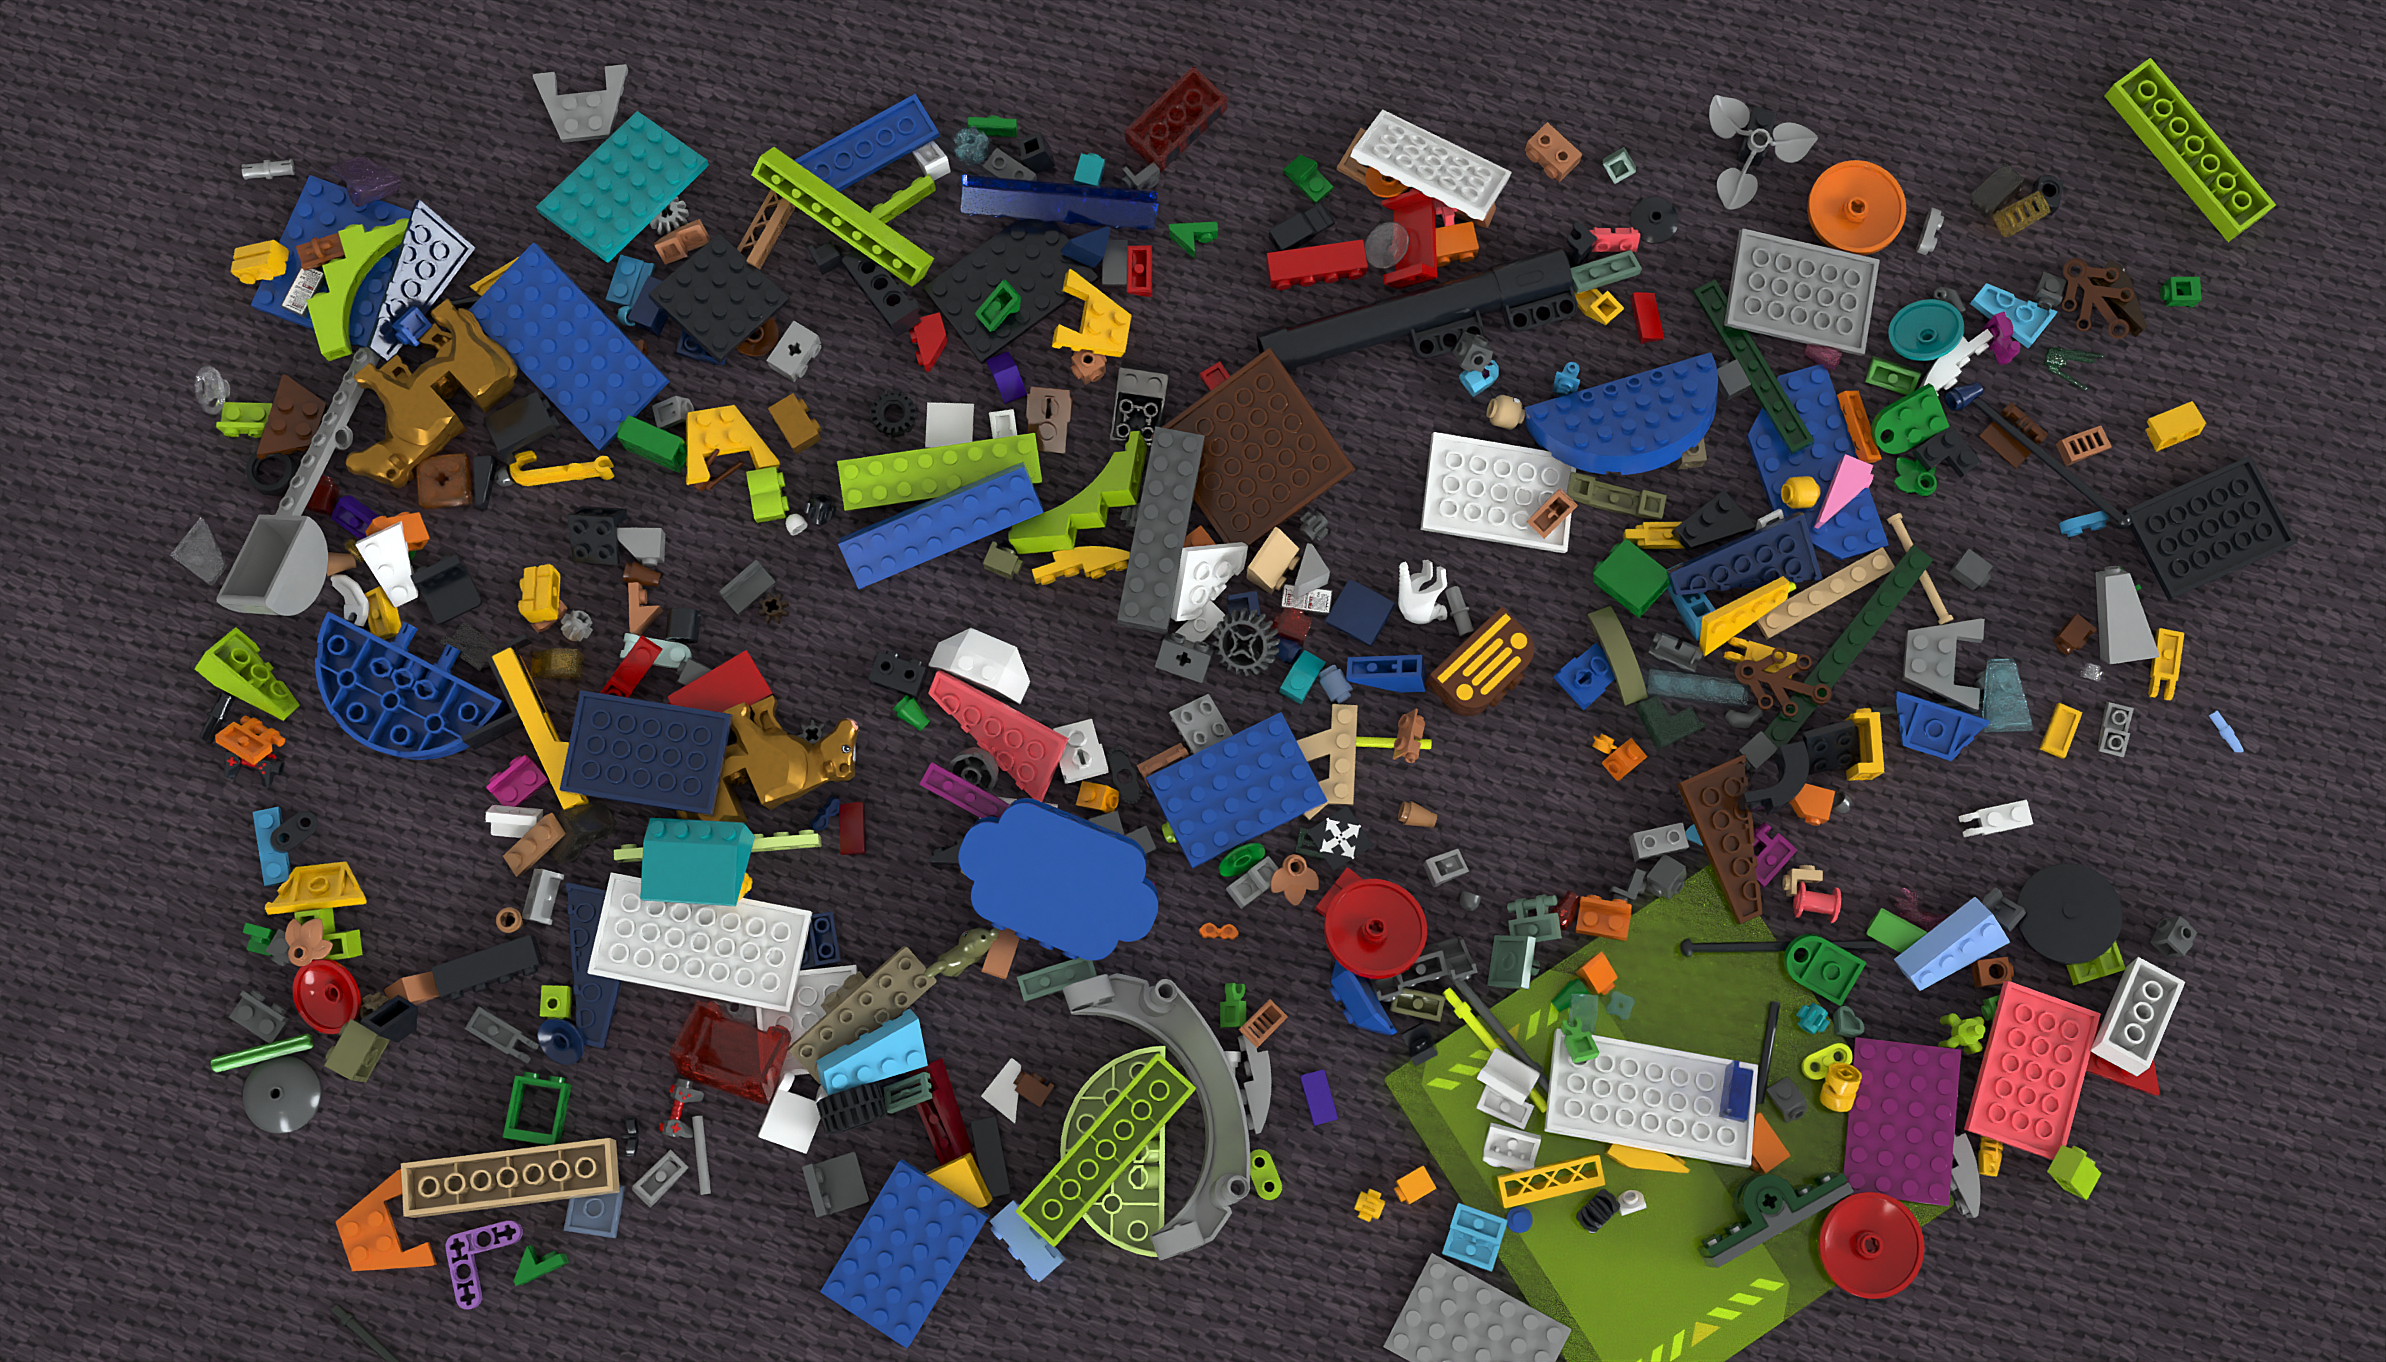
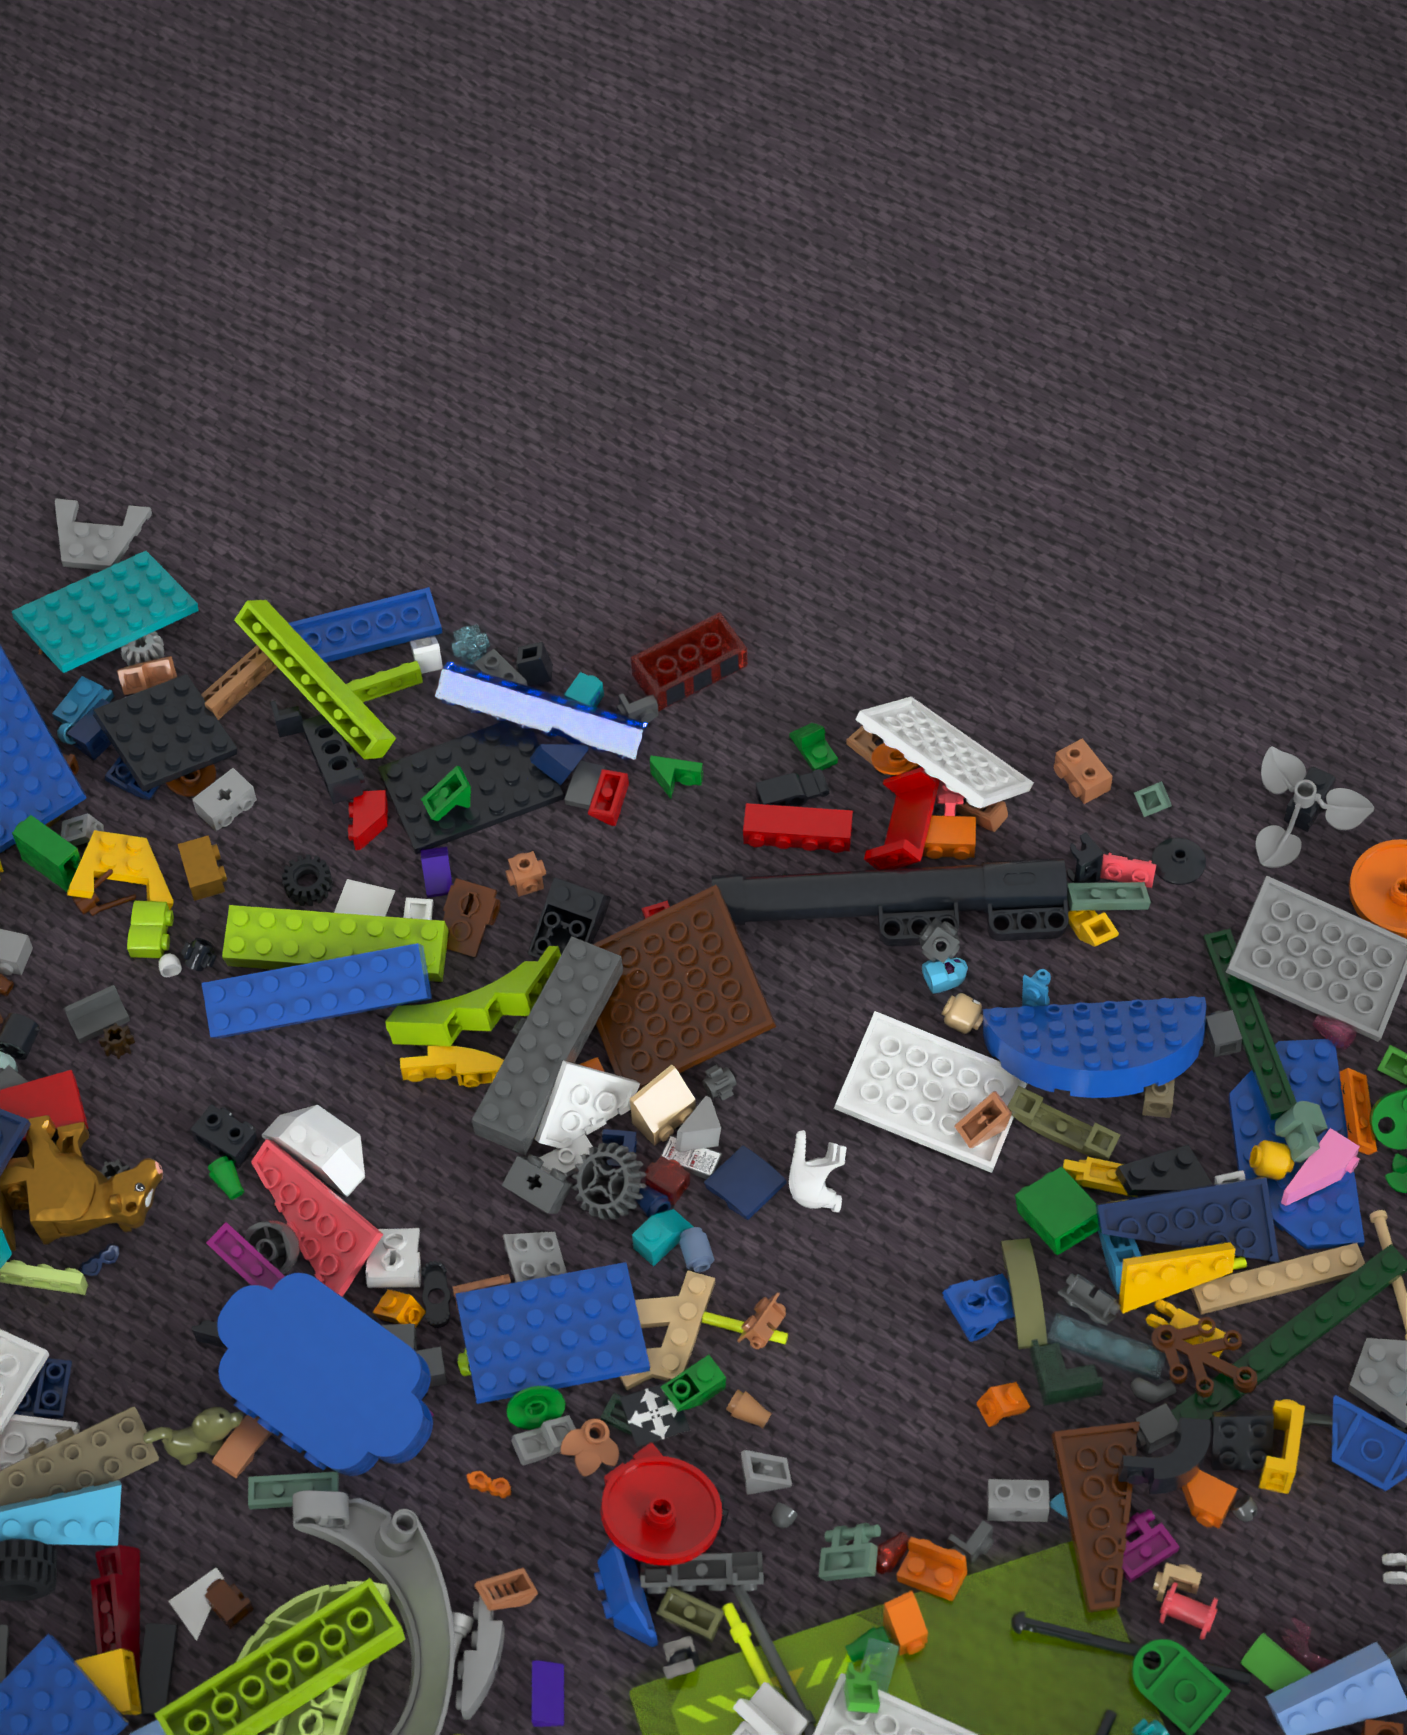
camera: 20 degrees right, 20 degrees down
(852, 828) = (124, 1282): dark red slope -> none
(922, 1089) = (86, 1571): sand green tile -> none
(994, 126) = (501, 633): green plate -> none
(1002, 562) = (372, 1047): olive brick -> none
(1103, 321) = (552, 836): yellow wing -> none
(1233, 1010) = (480, 1567): bright green plate -> none
(1368, 807) = (695, 1385): none -> green slope
(1381, 240) = (878, 823): clear dish -> none
(1391, 673) = (762, 1250): blue slope -> none
(1459, 611) = (856, 1206): light grey axle -> none
(1484, 666) = (864, 1264): reddish brown brick -> none
(1512, 962) = (812, 1591): sand green tile -> none
(1604, 743) = (982, 1379): light orange plate -> none
(1613, 1007) = (926, 1662): clear light blue plate -> none
(1646, 317) = (1145, 953): red slope -> none
(1666, 877) = (1016, 1540): dark grey brick -> none
(1819, 460) = (1300, 1128): none -> sand green brick

